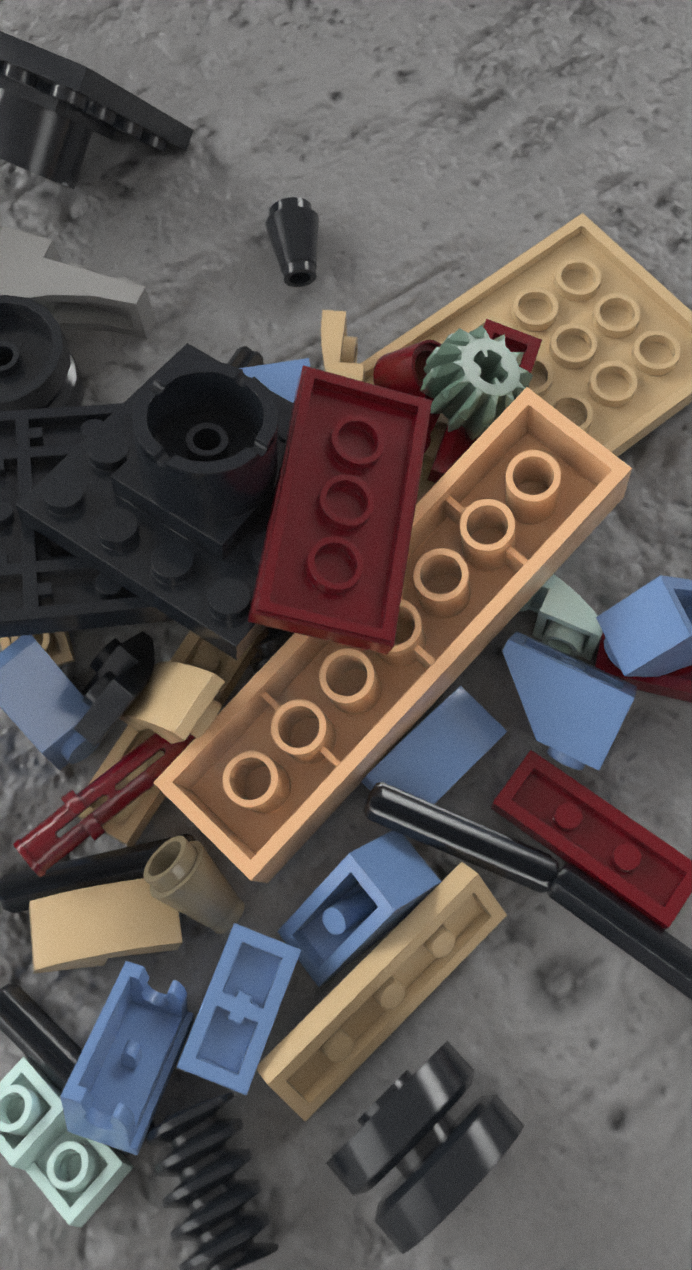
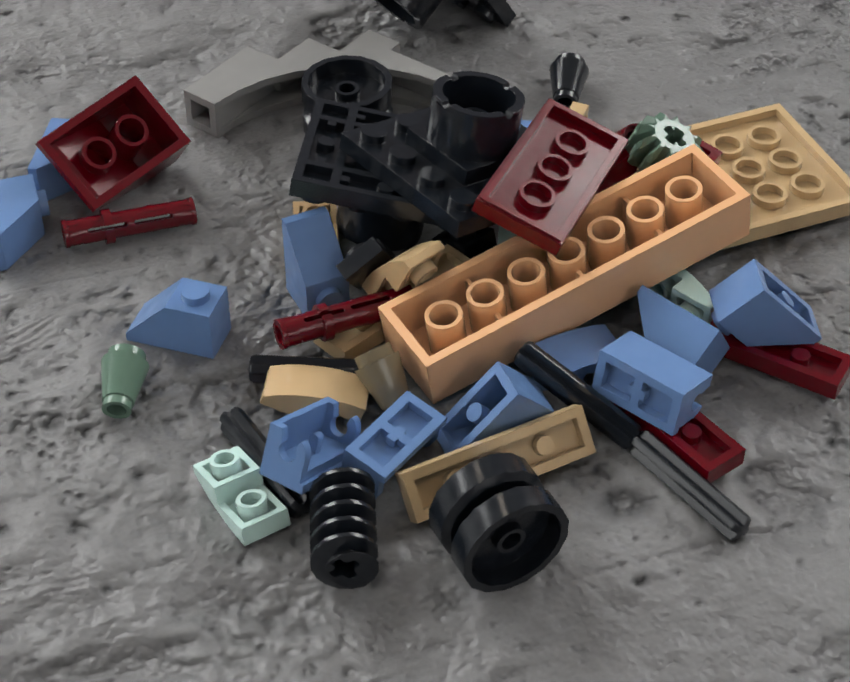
camera: 10 degrees right, 25 degrees down
(561, 802) = (650, 381): none -> medium blue hinge

